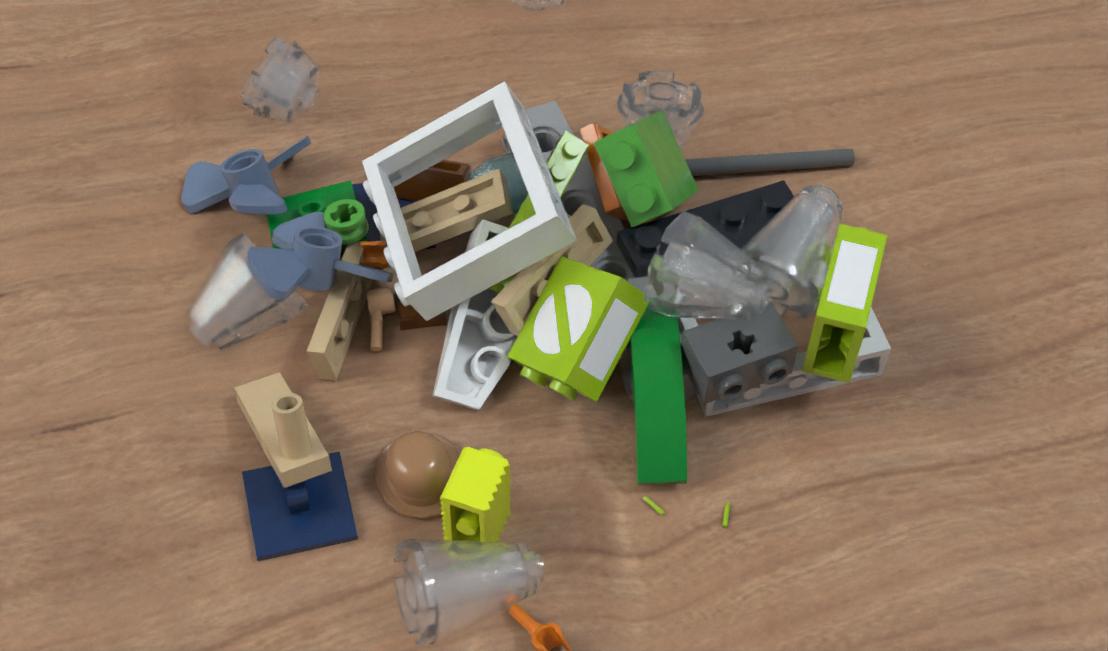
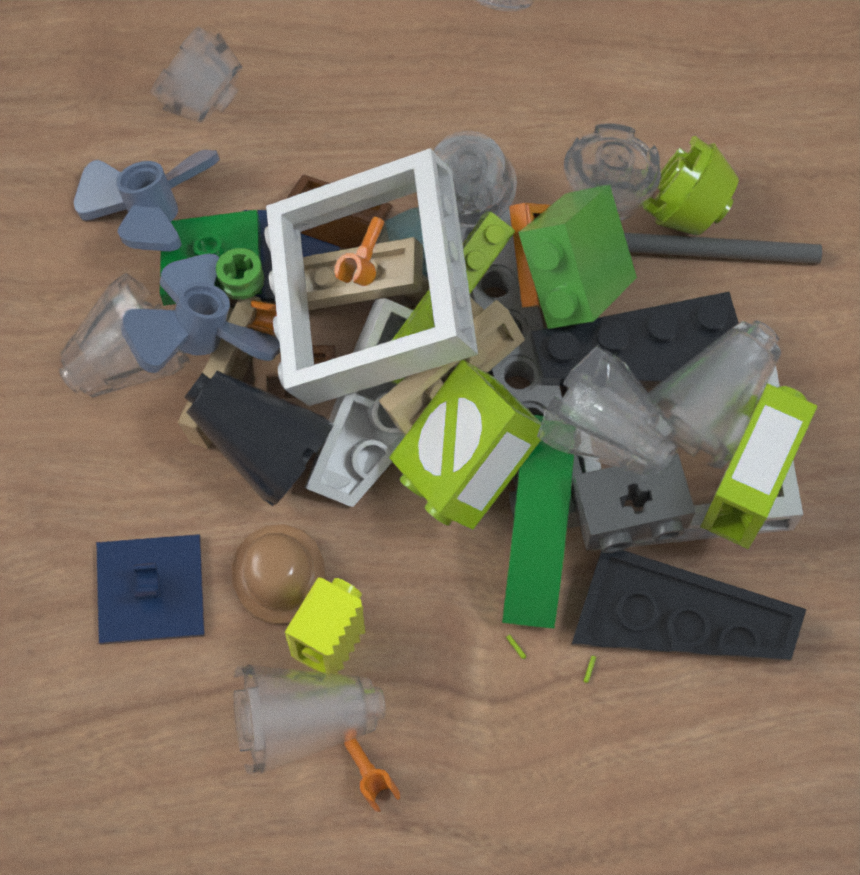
camera: 10 degrees right, 15 degrees up
(283, 429) = (141, 507): tan piece -> none
(381, 344) = (257, 431): none -> black cone
(456, 177) = (361, 261): none -> orange hand
(548, 112) = (480, 173): none -> clear cone
(734, 115) = (694, 189): none -> lime cone
(793, 450) = (673, 610): none -> black wing

